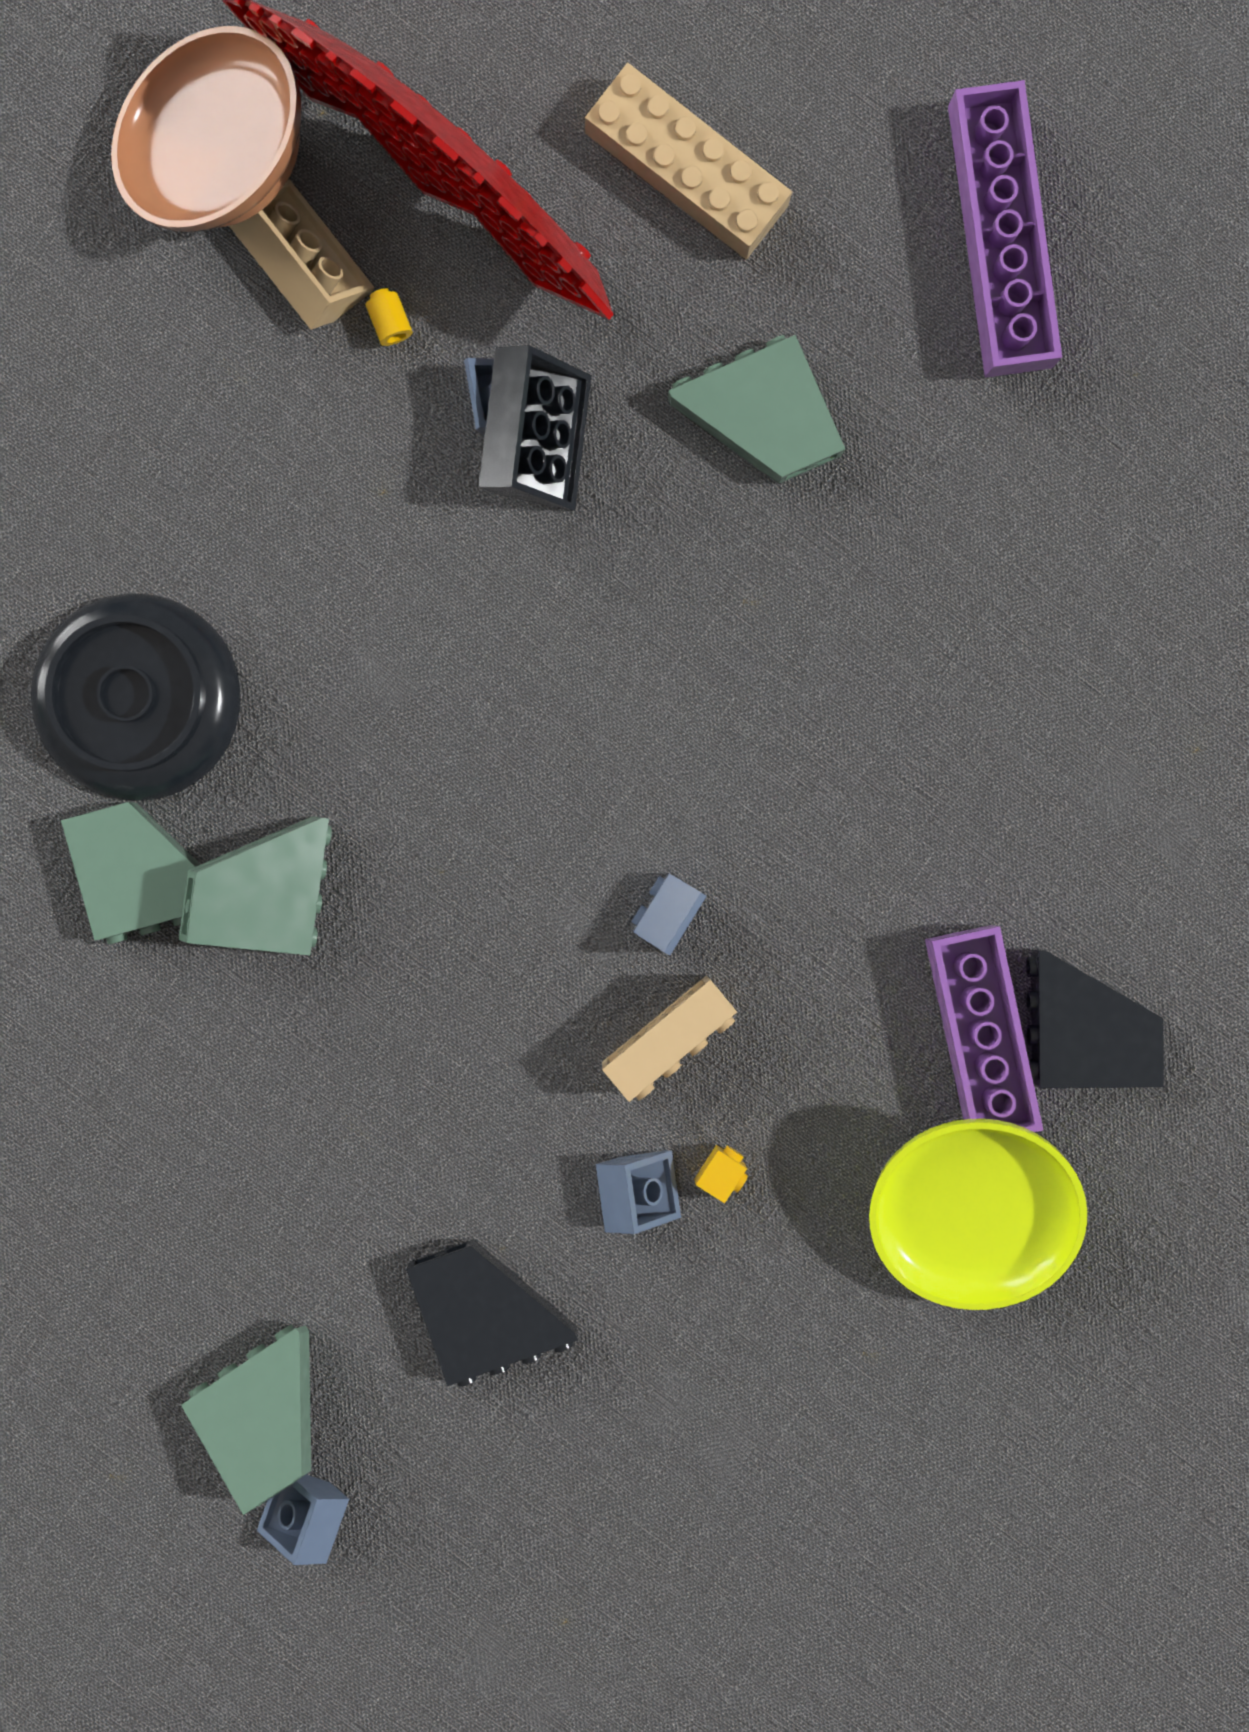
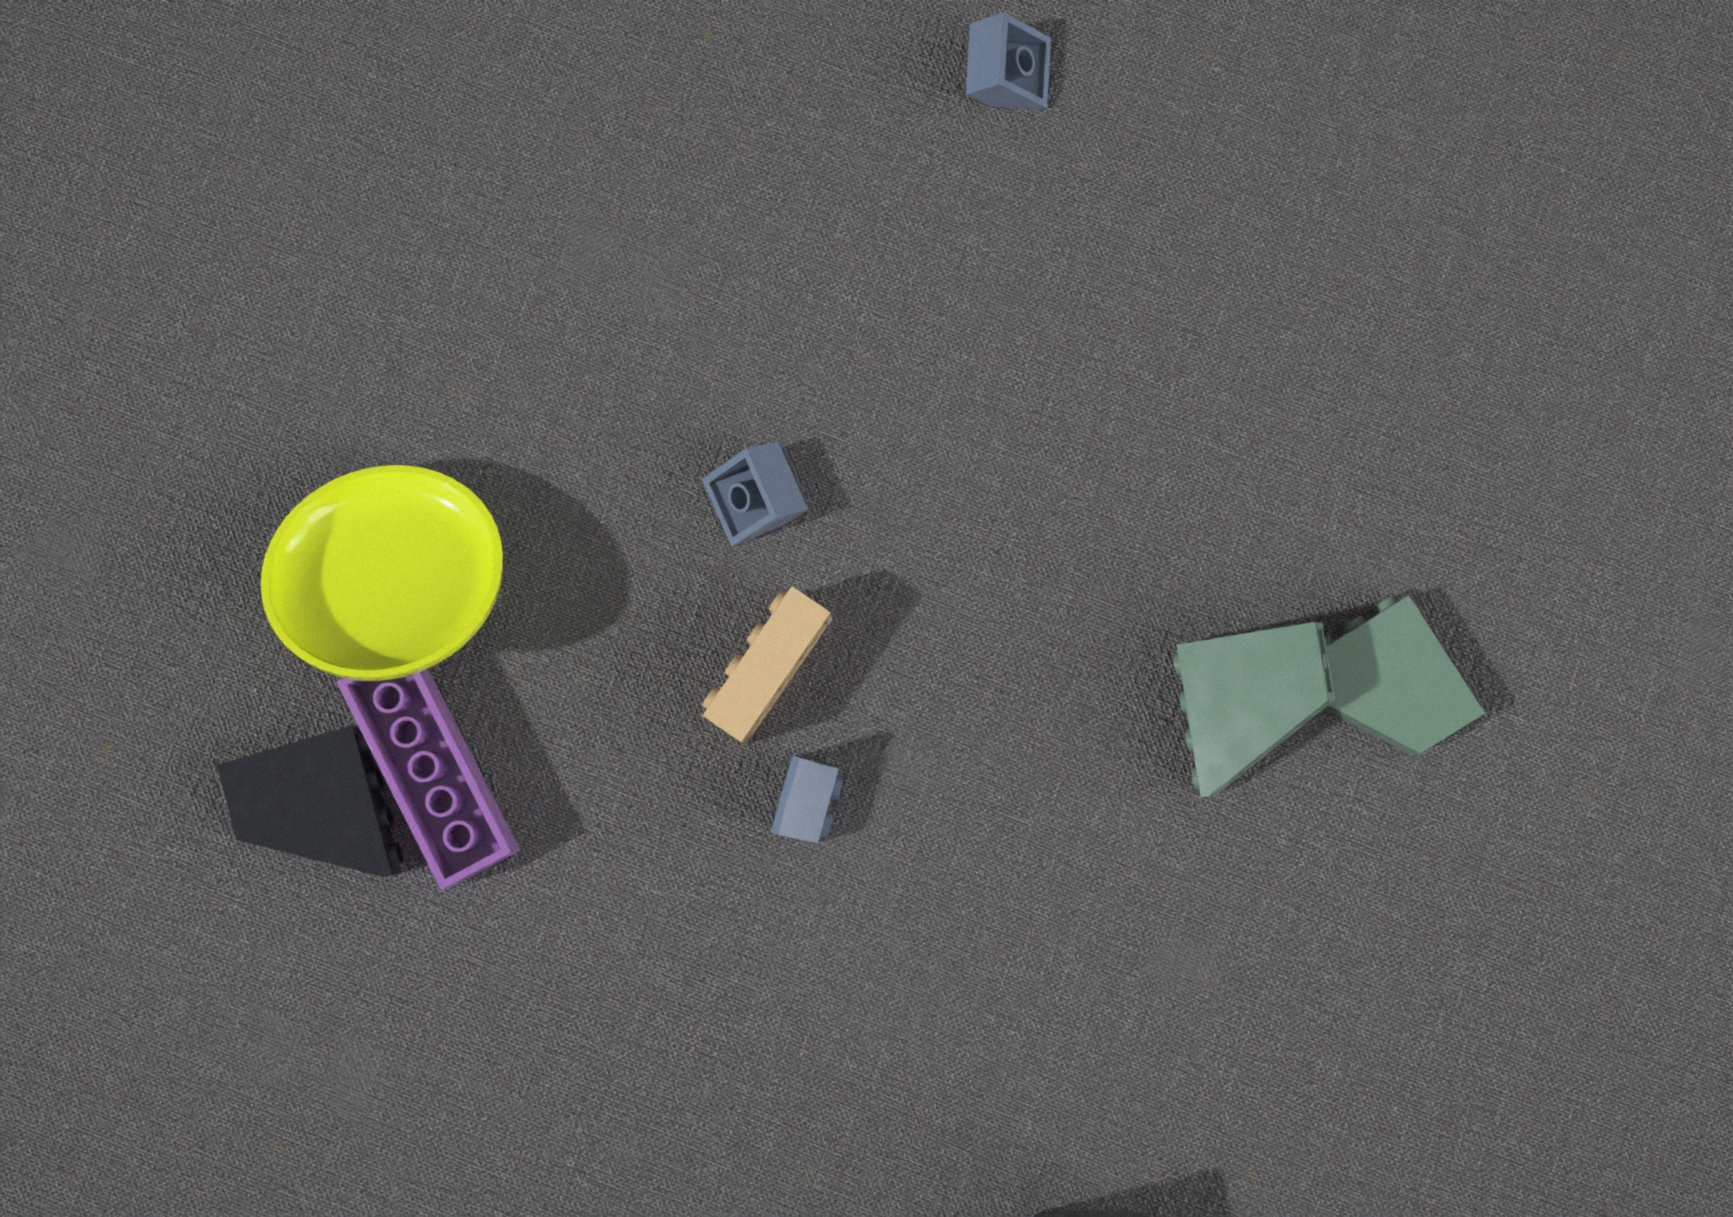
camera: 165 degrees right, 5 degrees down
(135, 696) = (1445, 869): black dish -> none
(258, 1419) = (1083, 149): sand green slope -> none
(483, 1313) = (881, 321): black slope -> none
(722, 1173) = (670, 538): yellow brick -> none

